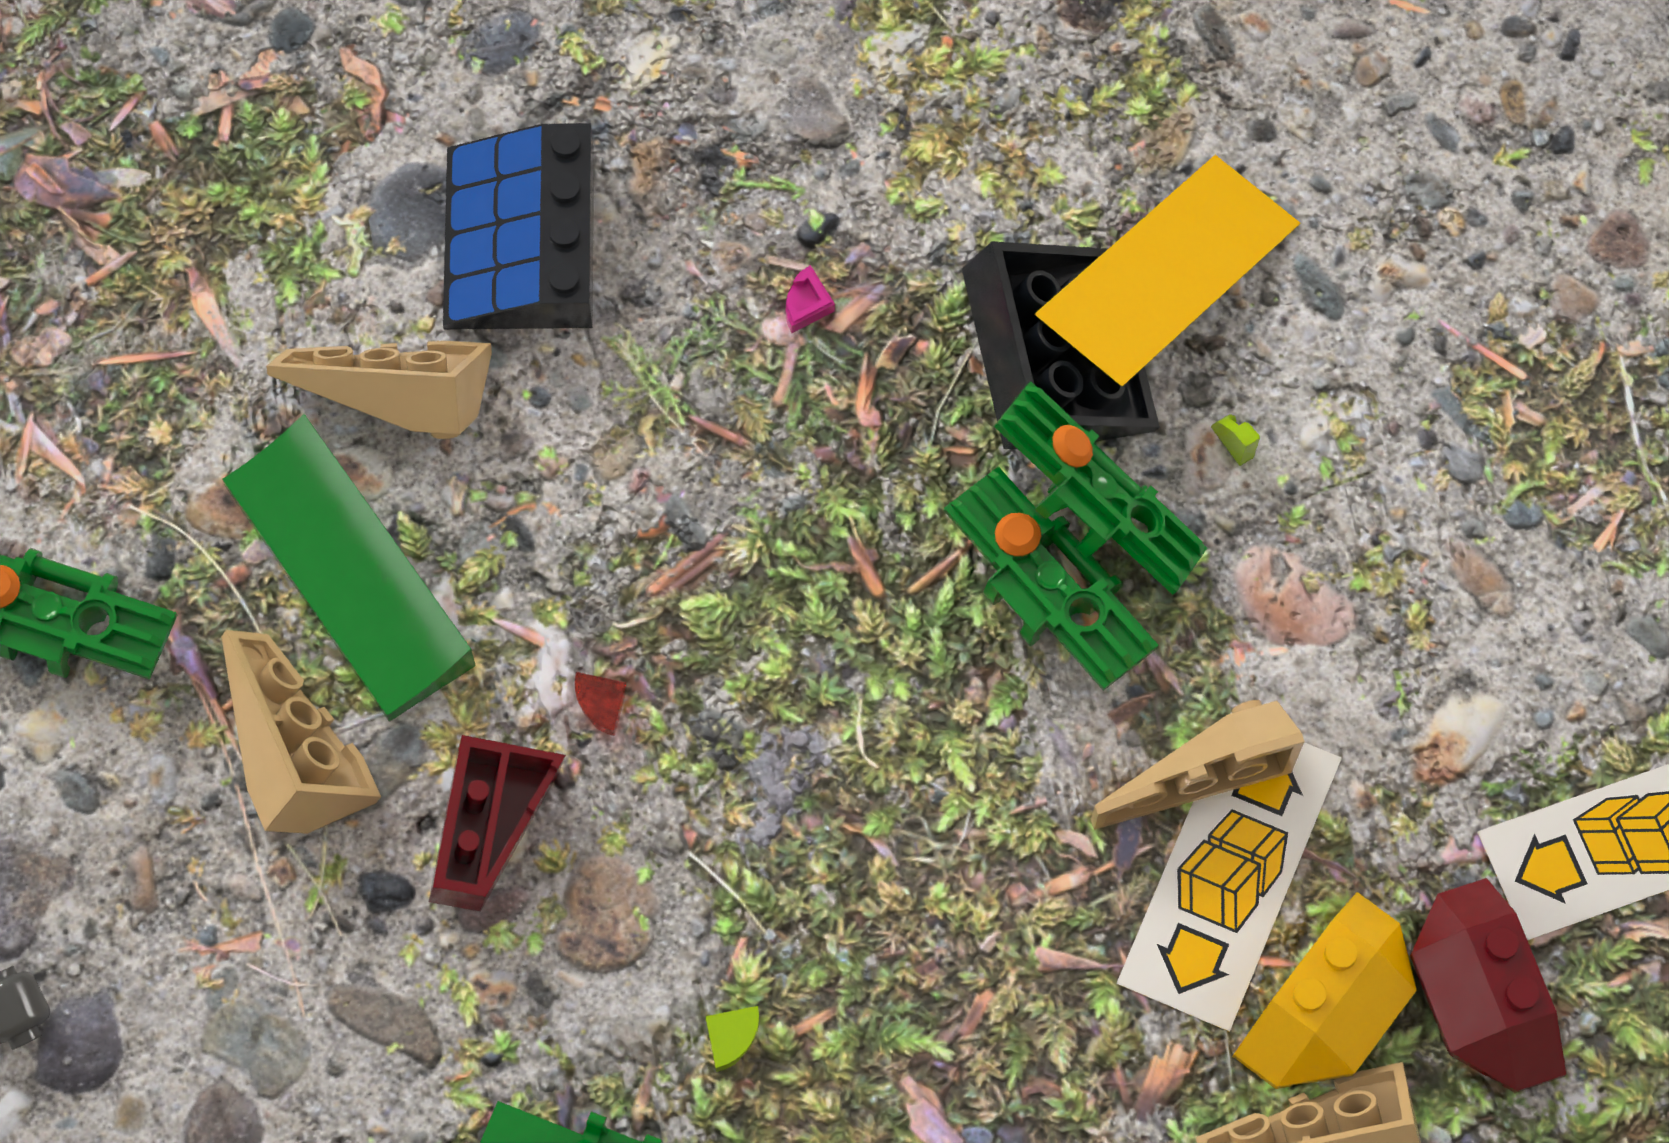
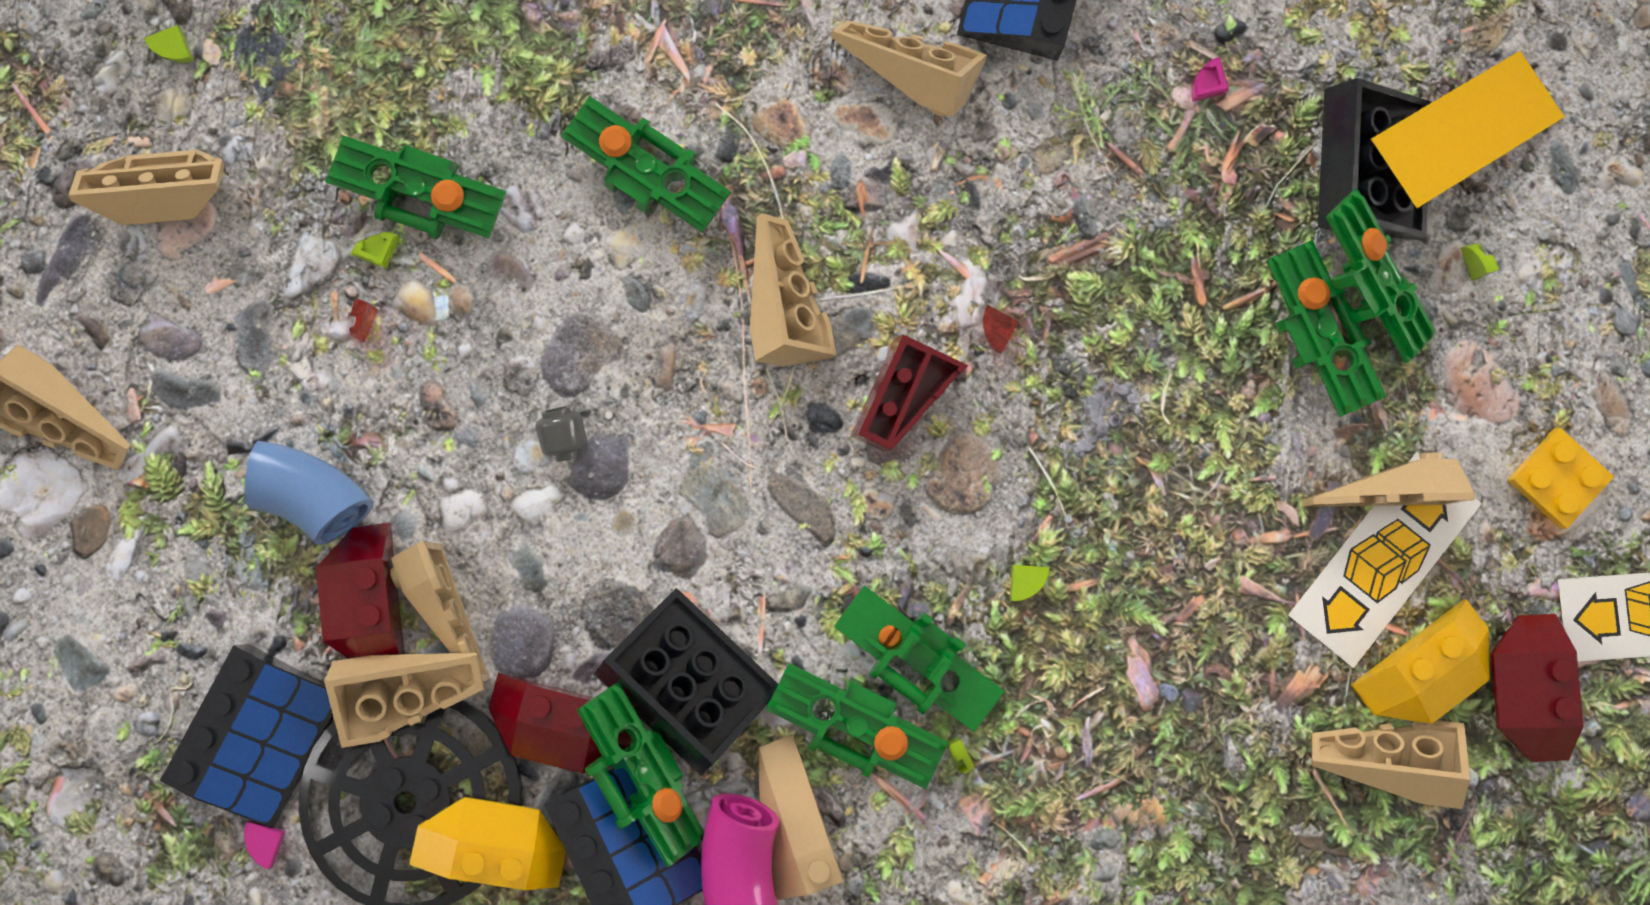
camera: 10 degrees right, 15 degrees up
(349, 570) = (852, 190): green arch -> none
(1437, 693) = (1560, 478): none -> yellow plate

